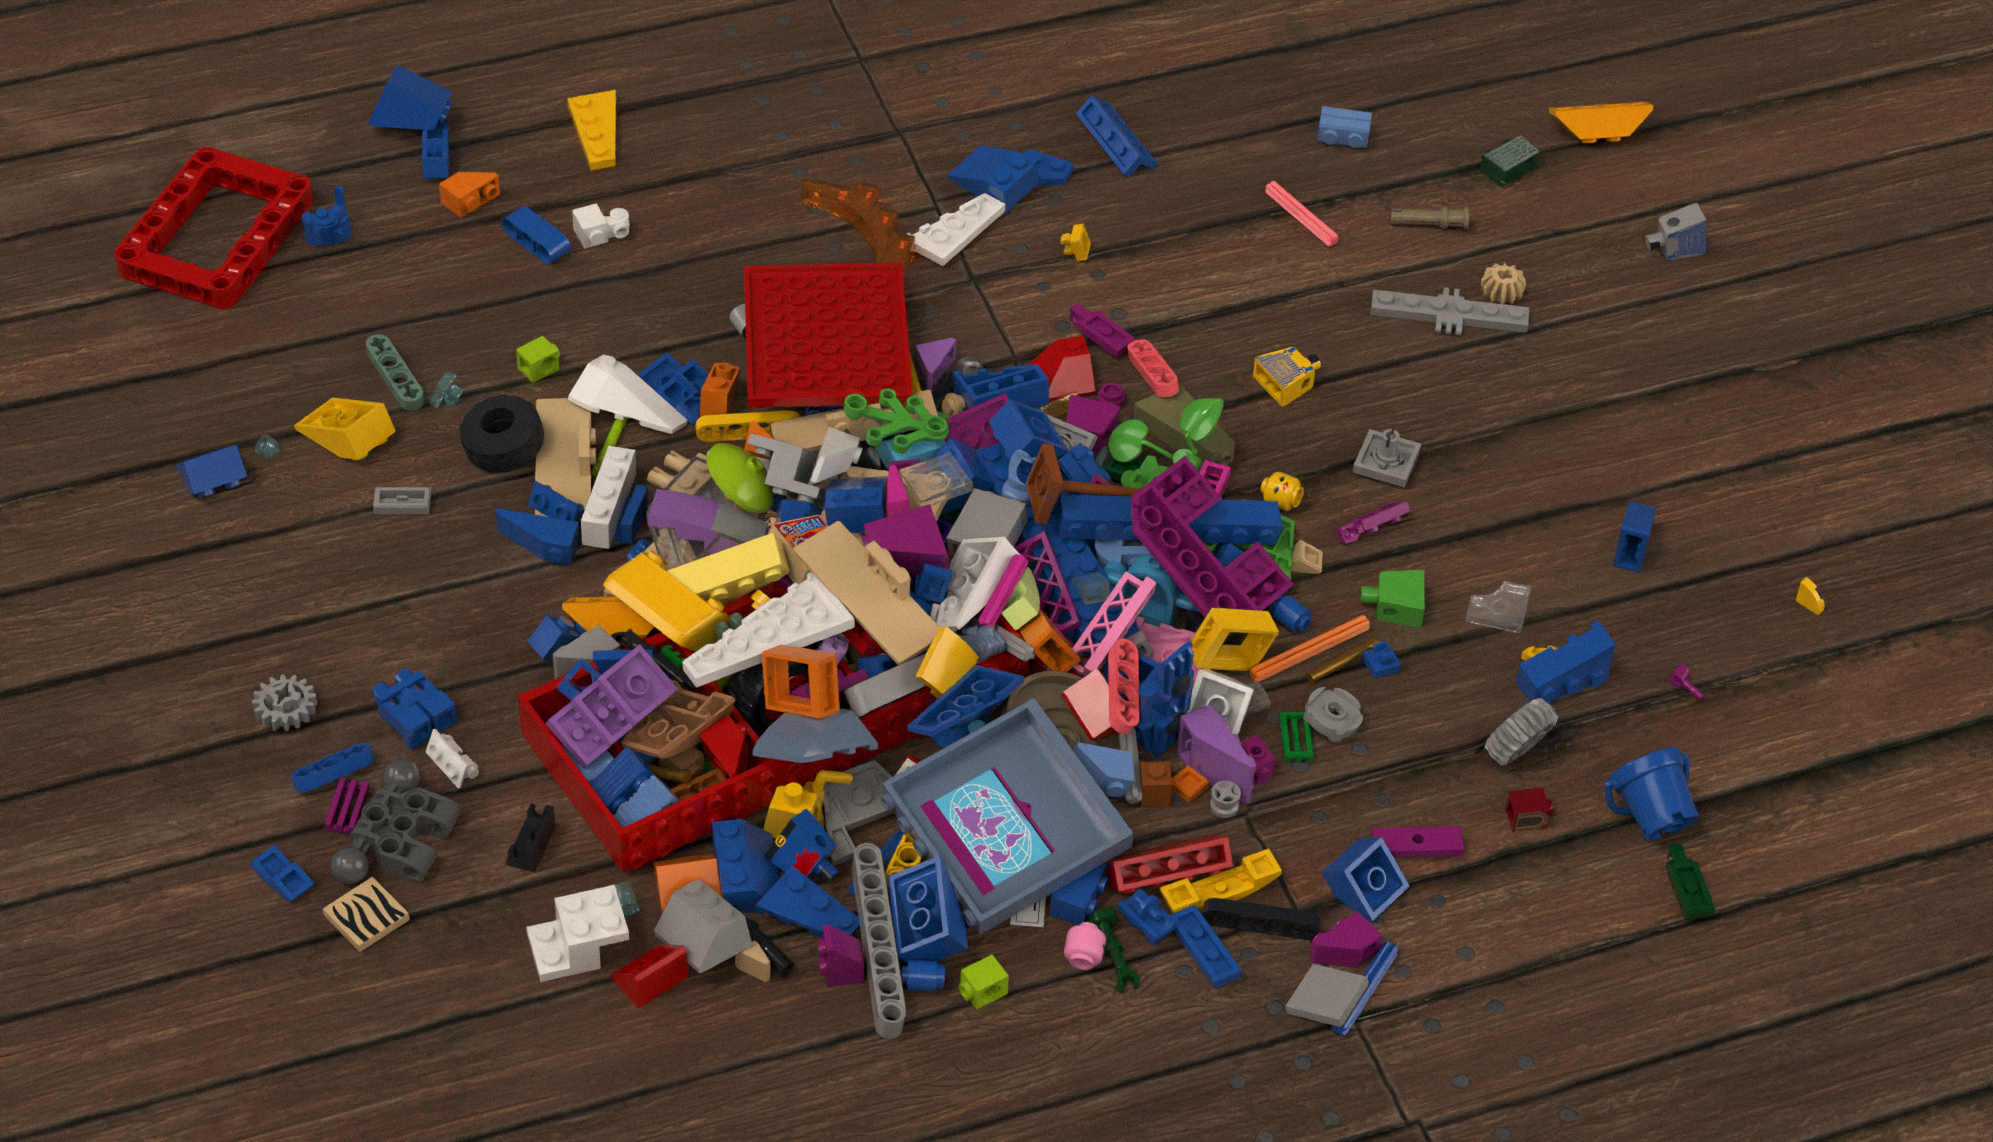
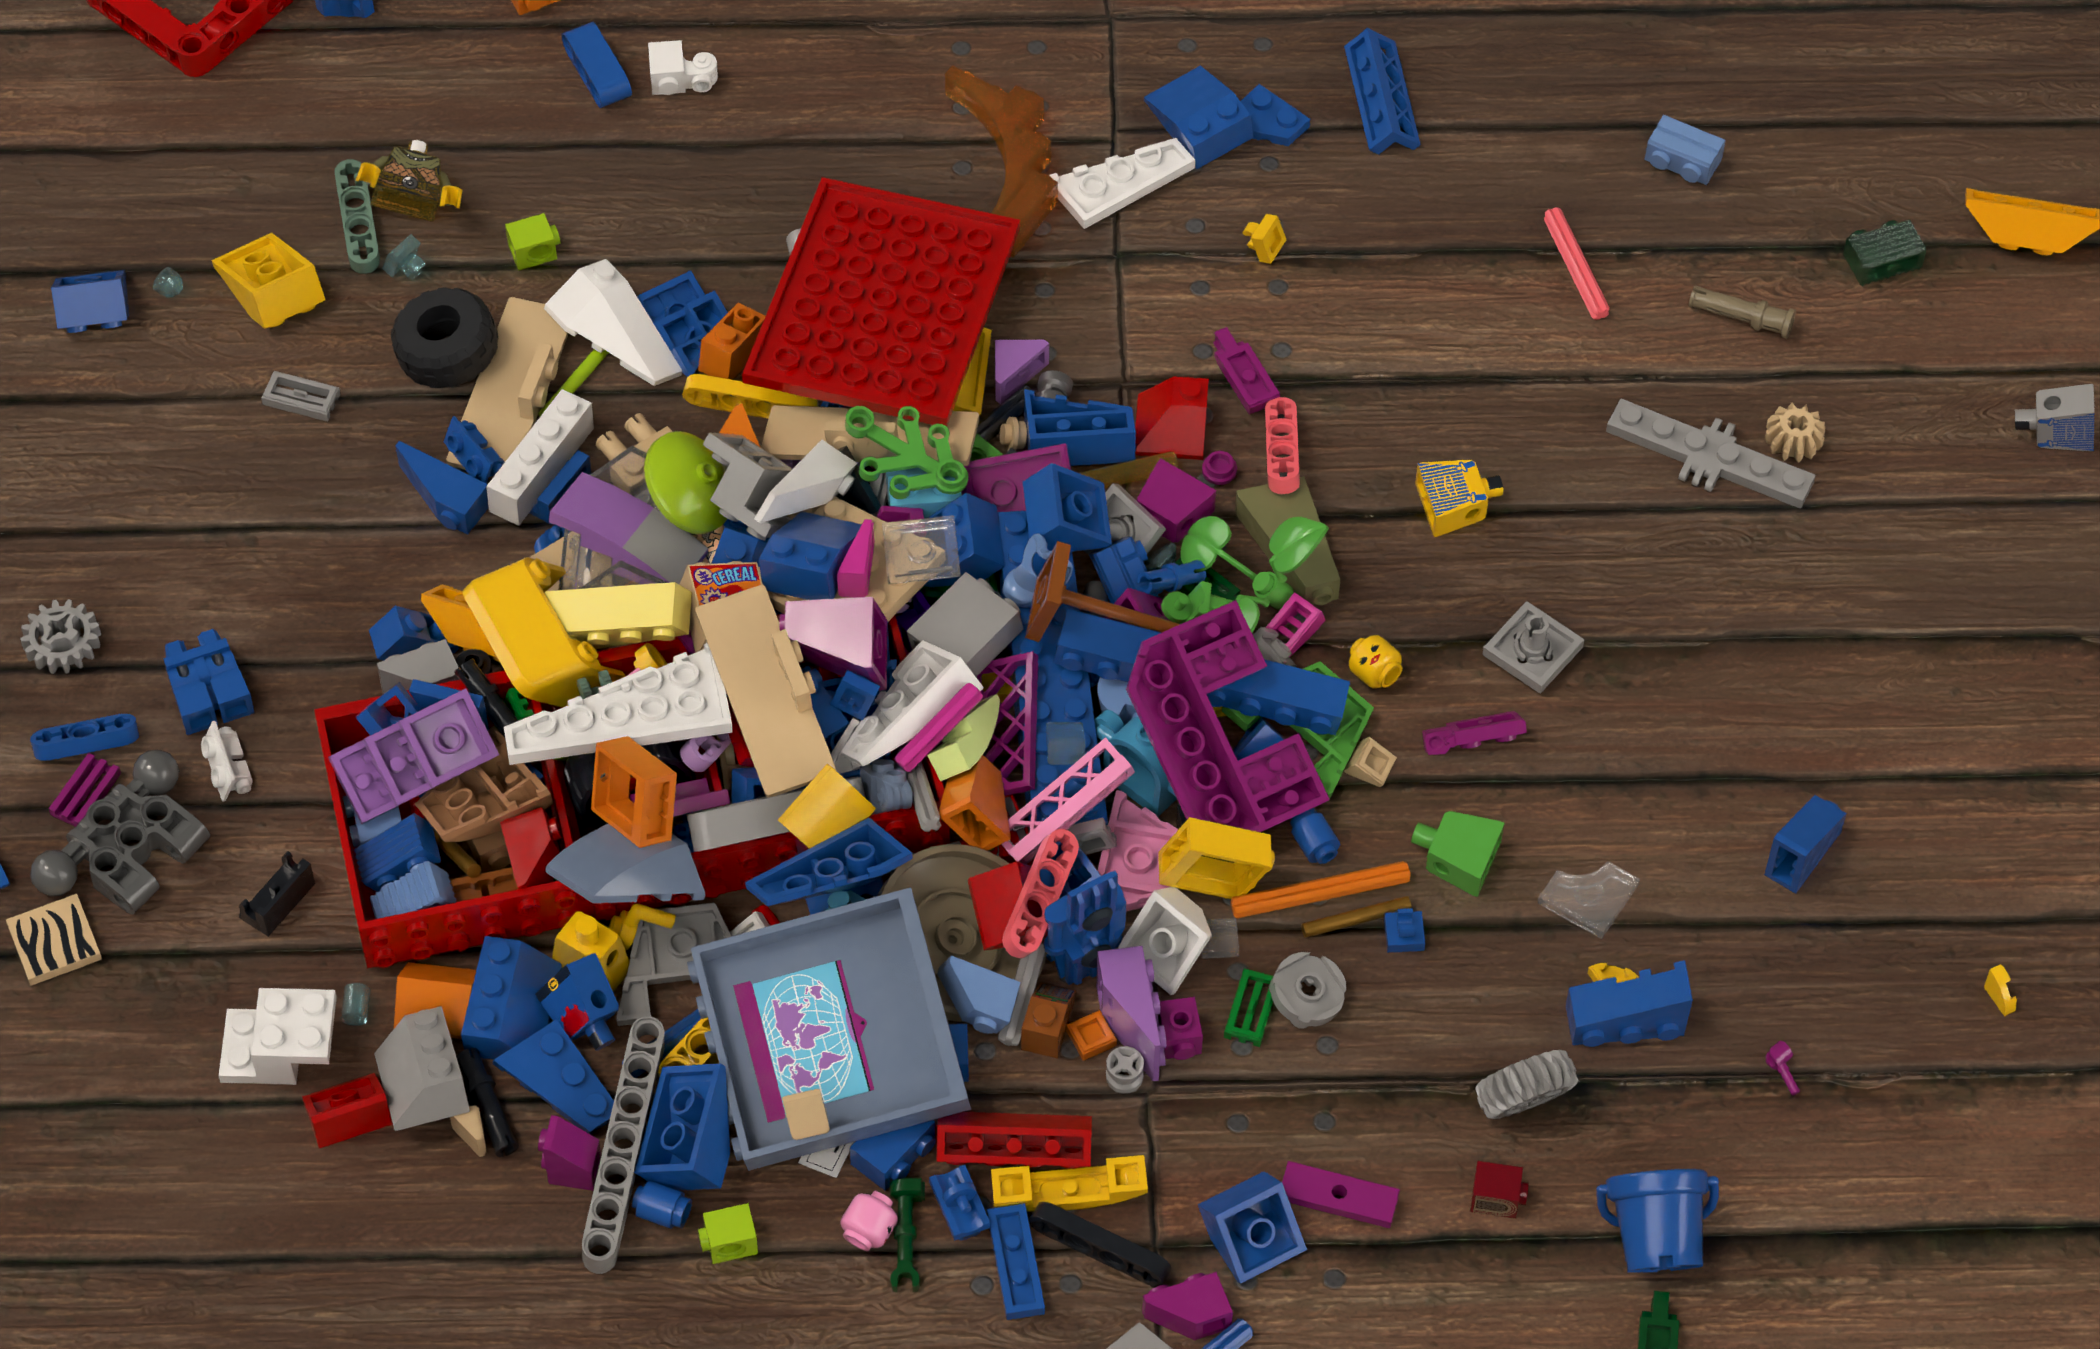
camera: 20 degrees right, 10 degrees up
(431, 339) = (410, 182): none -> torso
(1018, 874) = (806, 1114): none -> tan slope
(1116, 465) = (1171, 577): none -> blue pin

